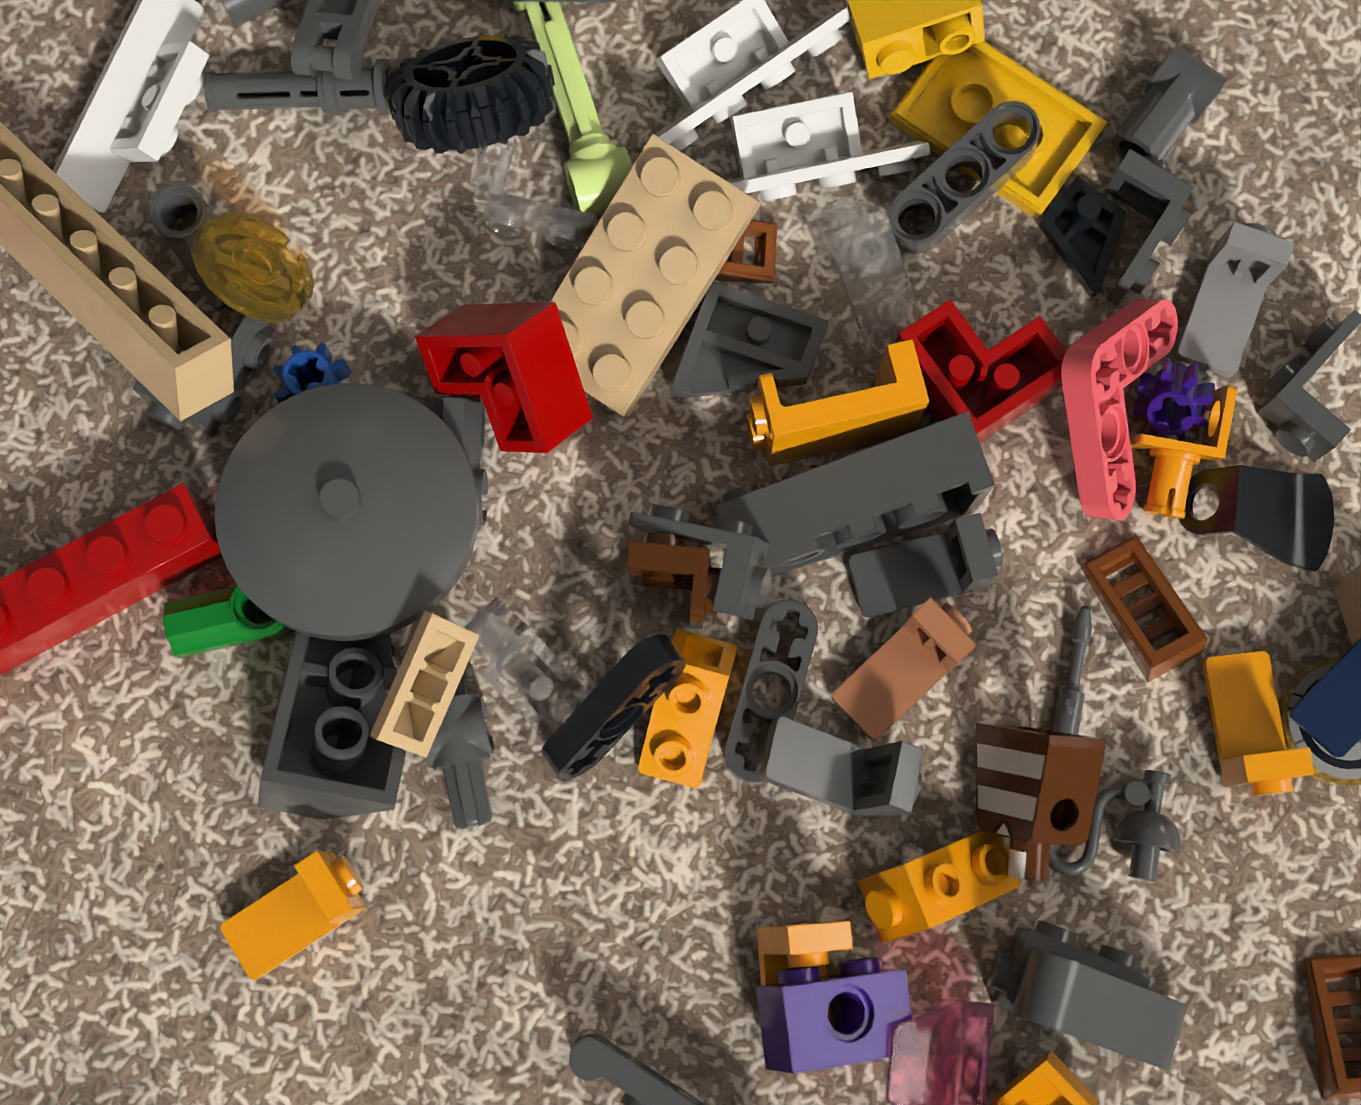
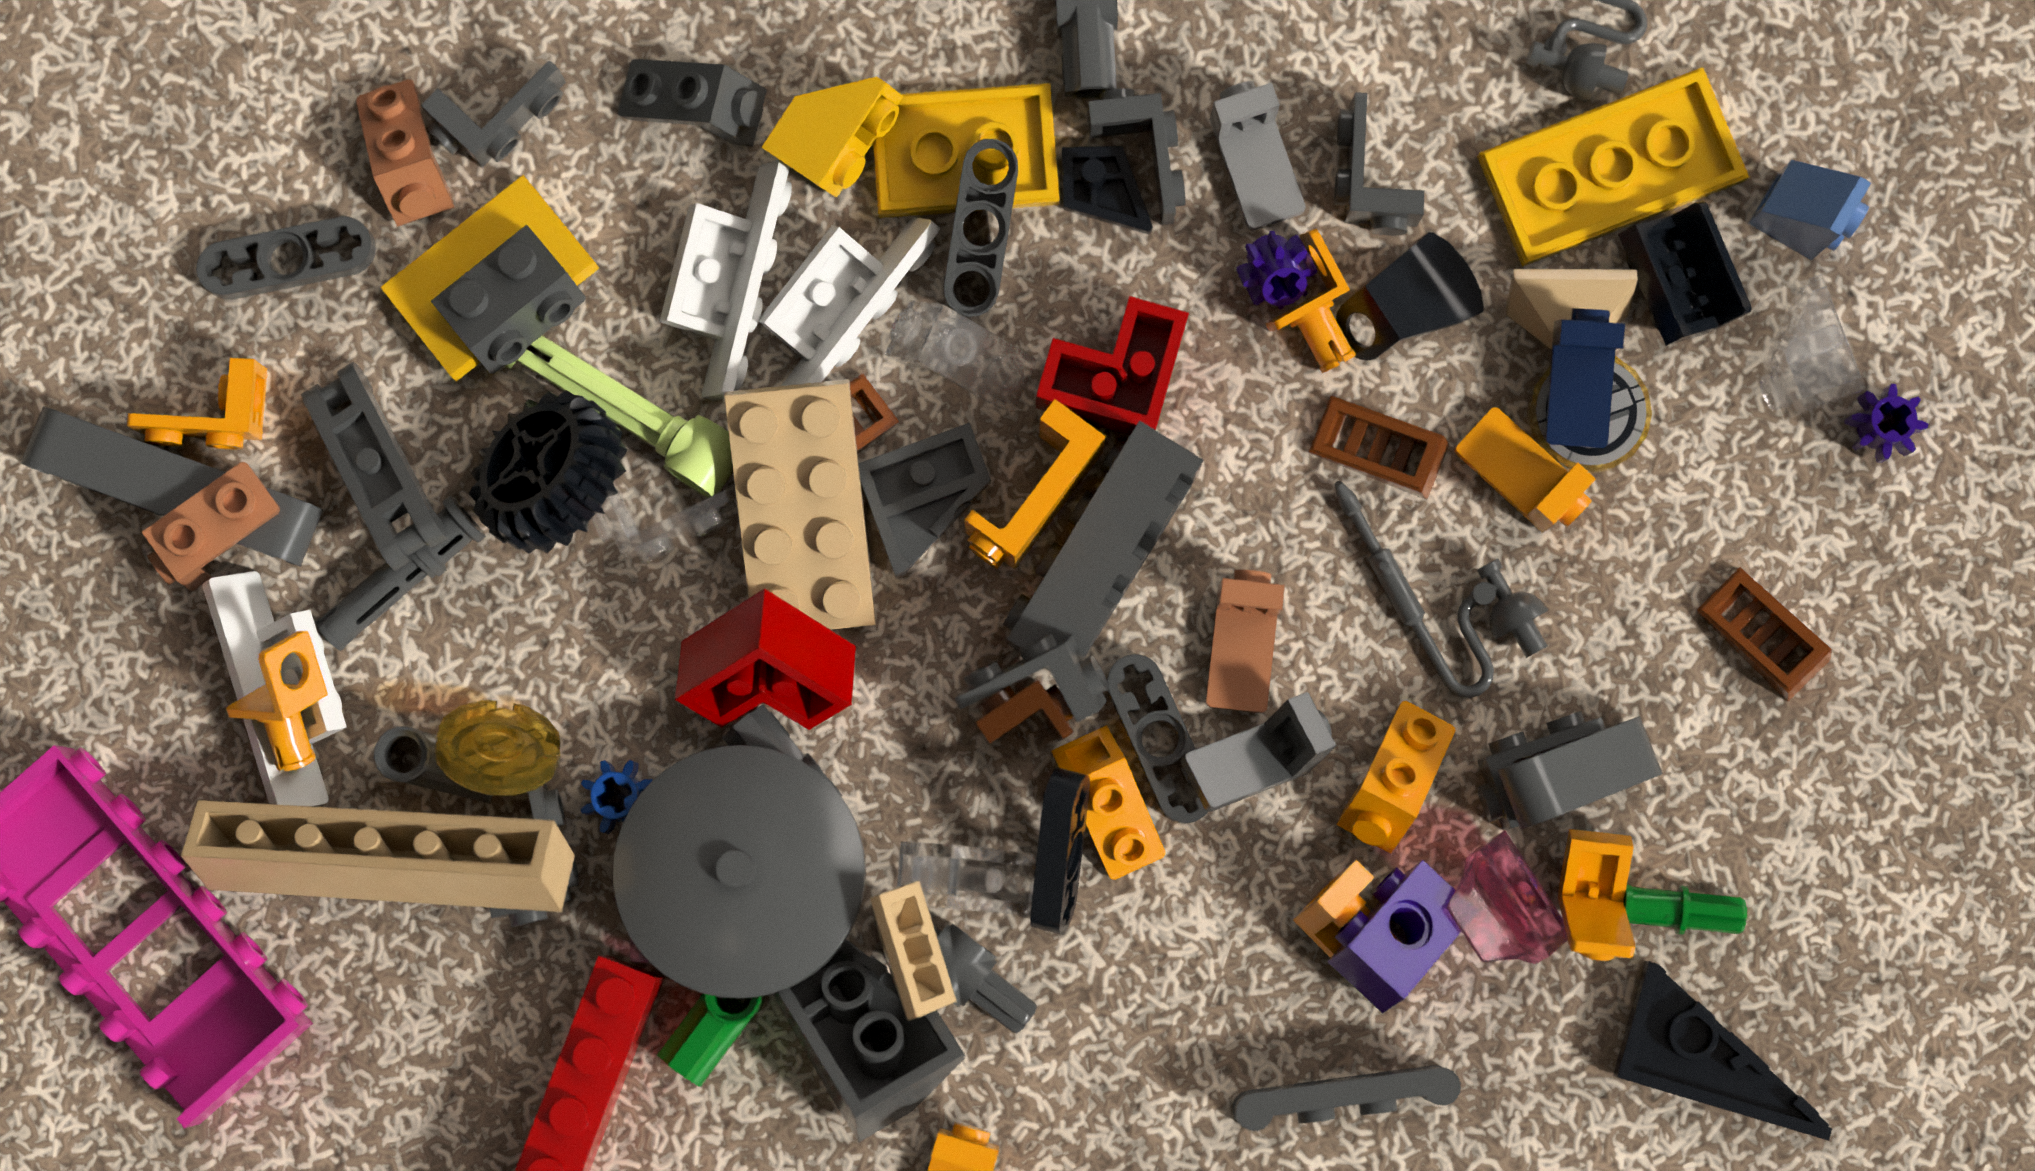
camera: 40 degrees left, 5 degrees up
(120, 99) = (280, 704): none -> light orange bracket
(927, 567) = (1197, 553): dark grey bracket -> none
(1035, 791) = (1410, 653): reddish brown torso -> none
(1093, 386) = (1213, 319): coral beam -> none

